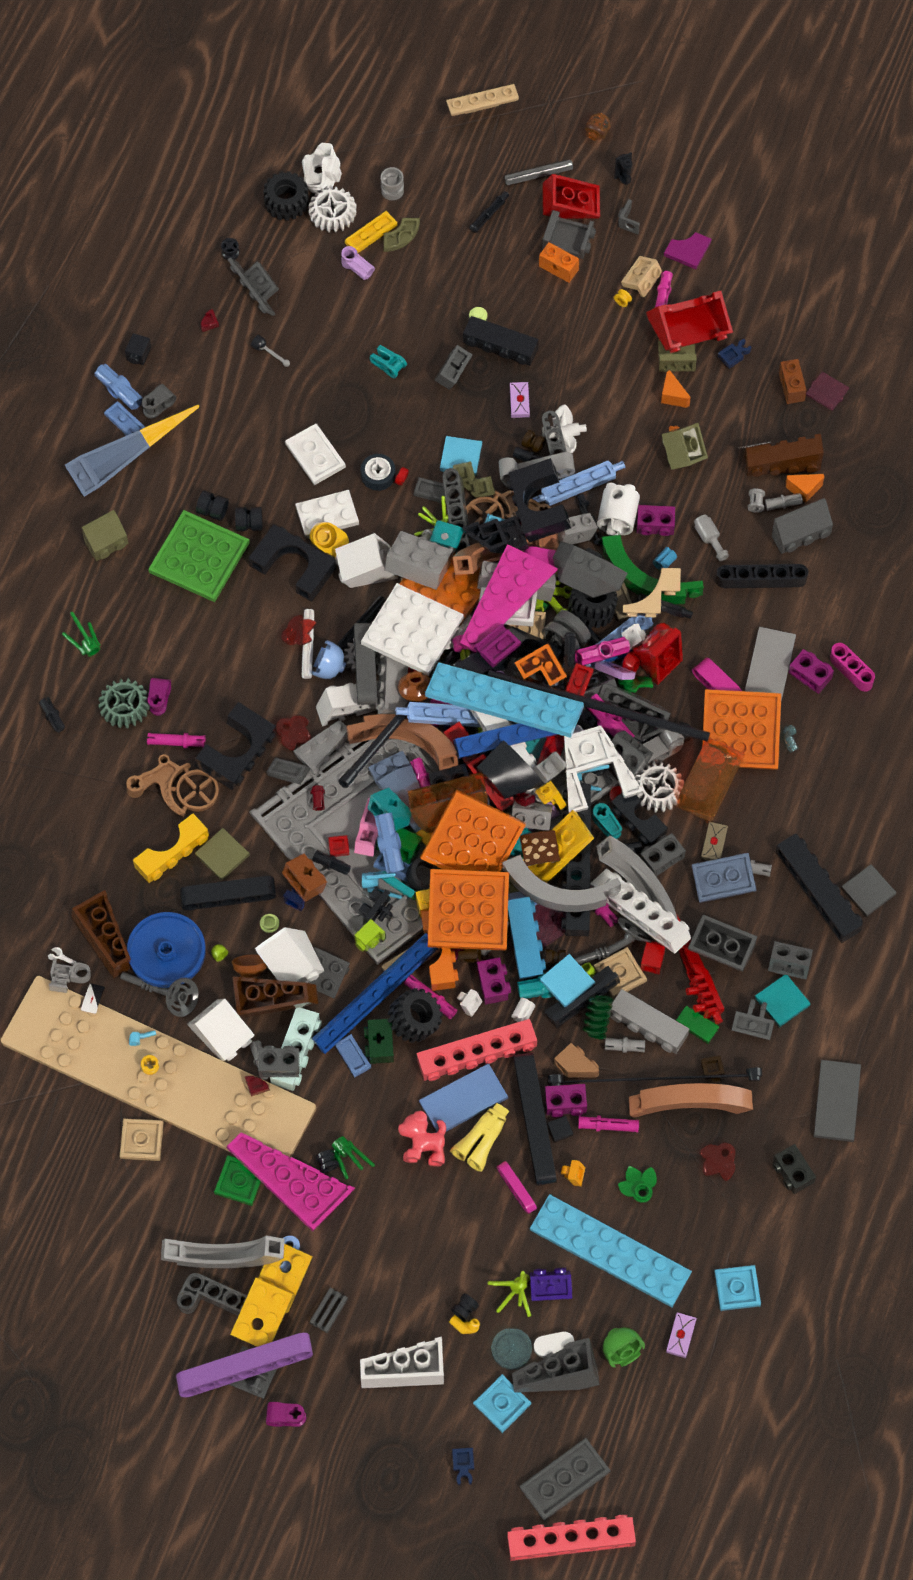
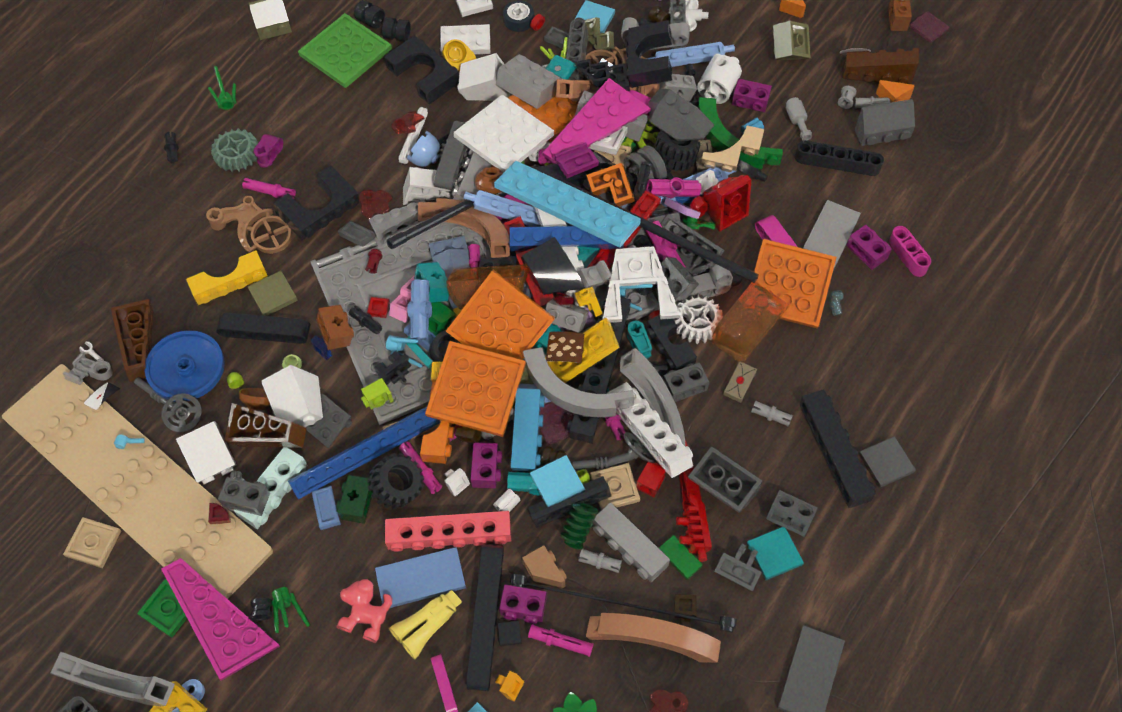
camera: 15 degrees right, 5 degrees down
(145, 1069) = (120, 465): yellow bush -> none
(724, 877) = (741, 416): sand blue tile -> none

